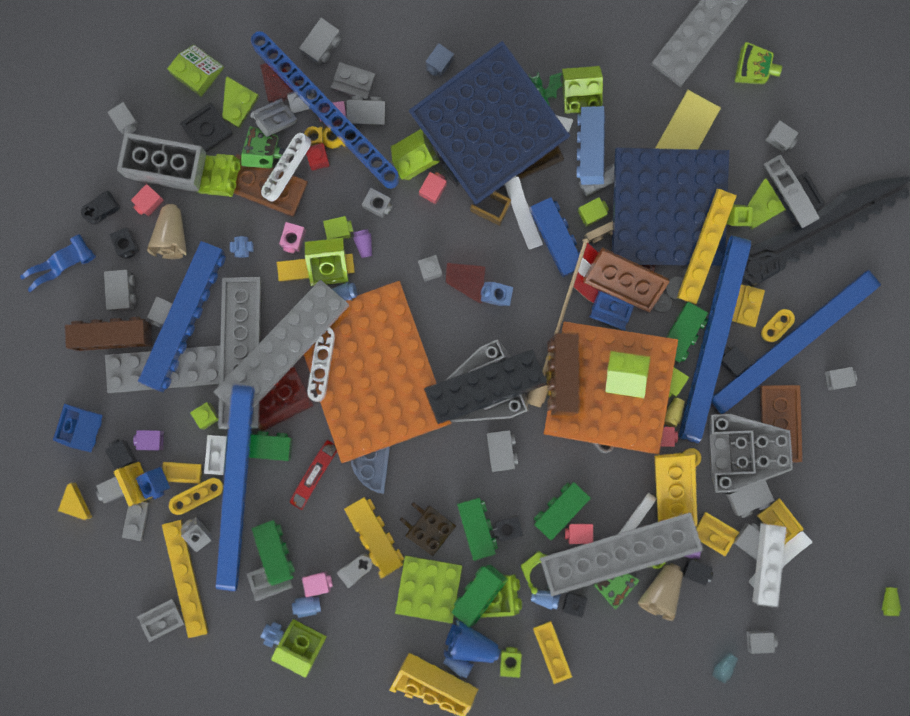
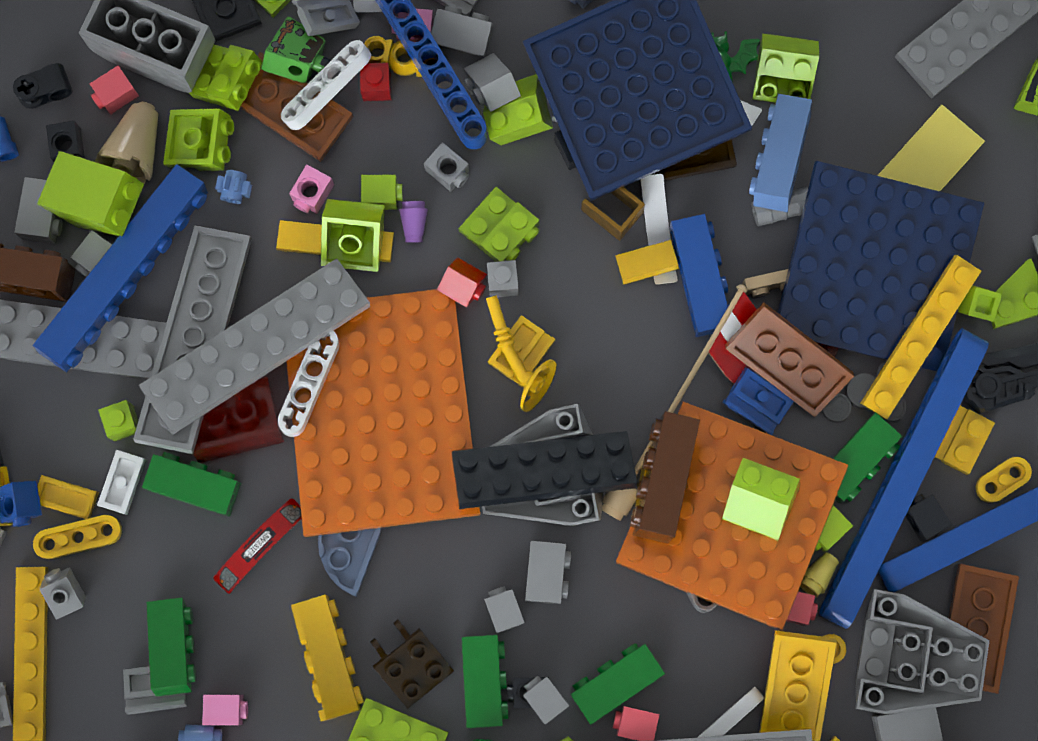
camera: 15 degrees right, 5 degrees down
(149, 440) = (28, 438): medium lavender brick -> none
(150, 273) = (90, 194): none -> lime slope
(210, 220) = (198, 139): none -> lime plate
(235, 487) = (135, 535): blue beam -> none
(346, 291) = (372, 285): medium blue cone -> none
(353, 571) = (283, 702): light grey piece -> none
(393, 141) = (491, 82): none -> light grey brick
(405, 276) = (462, 282): none -> brick
(420, 234) = (500, 226): none -> lime plate
(433, 187) = (534, 162): coral brick -> none
(452, 312) = (530, 345): none -> yellow plate
(465, 331) = (535, 382): none -> yellow dish
(466, 279) = (553, 308): clear red wing -> none
(479, 480) = (504, 609): none -> light grey brick
(503, 294) = (602, 340): medium blue brick -> none
(519, 531) = (544, 699): none -> light grey brick
(520, 236) = (647, 262): none -> yellow tile
(593, 212) = (762, 250): lime brick -> none

